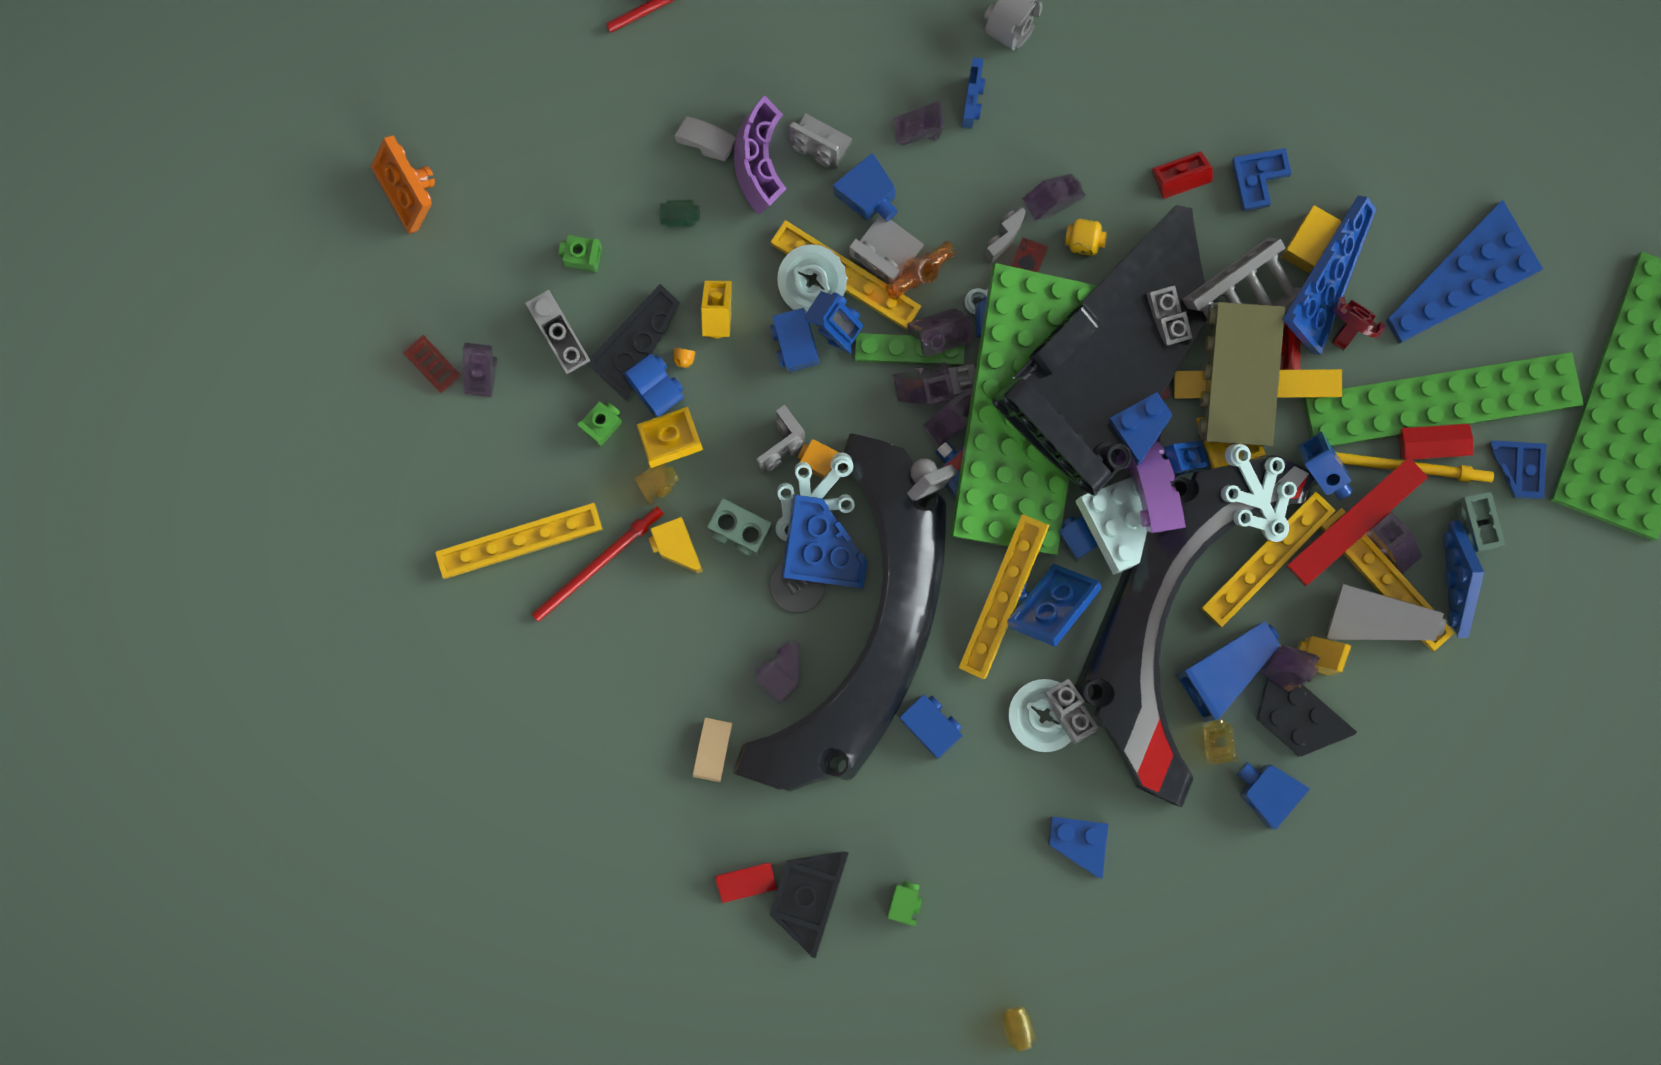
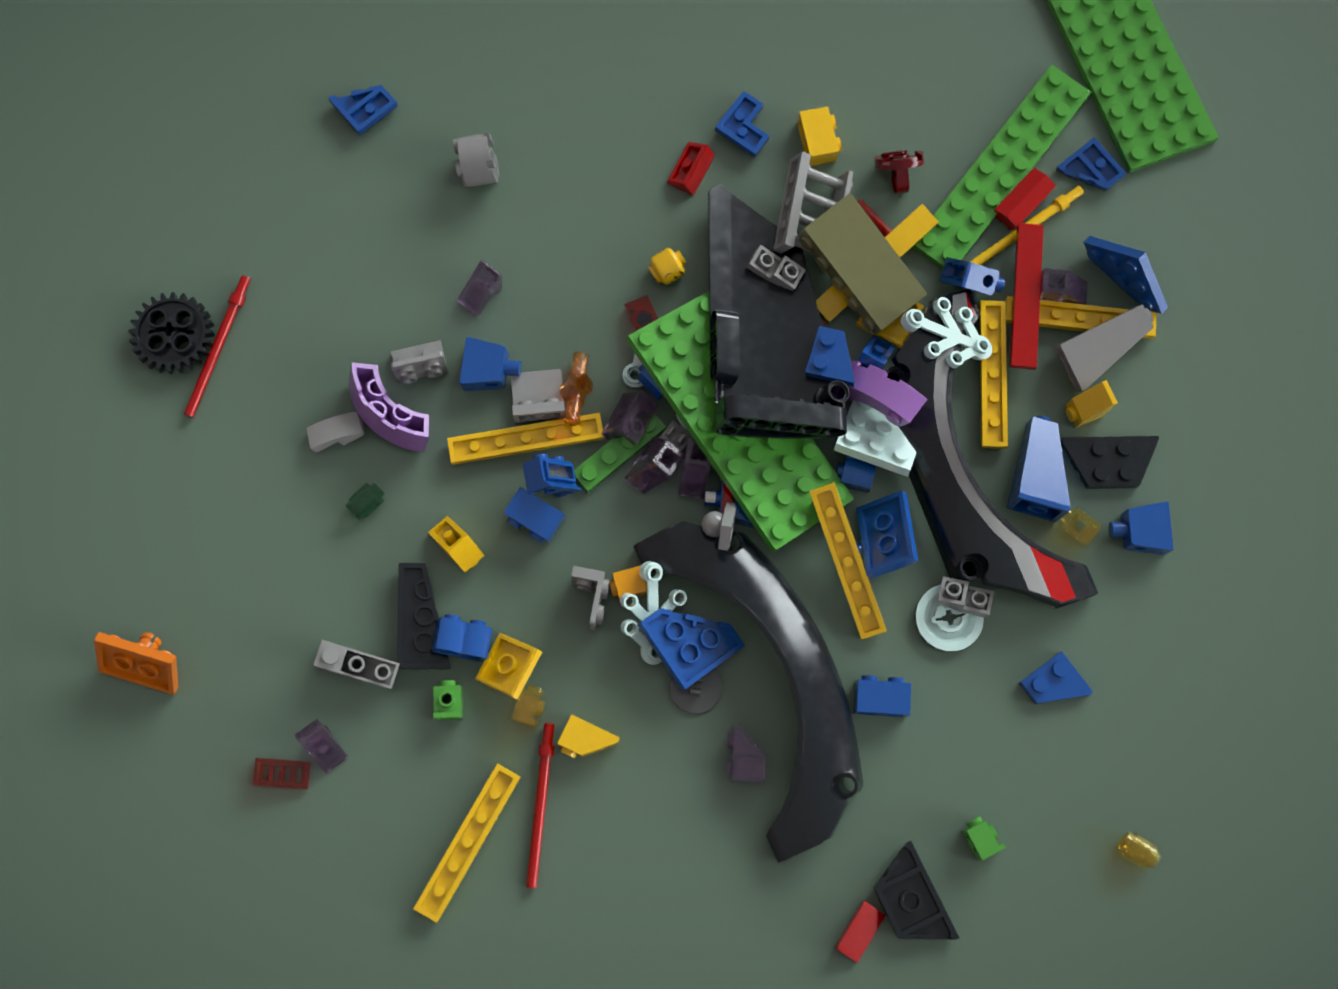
camera: 50 degrees left, 5 degrees down
(587, 259) = (327, 596): bright green brick -> none
(683, 357) = (464, 600): light orange hinge -> none
(712, 750) = (748, 860): tan slope -> none
(743, 521) = (616, 676): sand green brick -> none
(810, 260) = (491, 451): light aqua gear -> none
(975, 87) = (496, 233): blue wing -> none
(1009, 228) = (610, 308): light grey slope -> none
(1053, 196) = (619, 257): clear purple slope -> none
(1290, 667) = (1080, 431): clear purple slope -> none
(1312, 310) = (865, 178): blue wing -> none
(1477, 269) = (939, 66): blue wing -> none
(1480, 522) = (1103, 223): sand green brick -> none

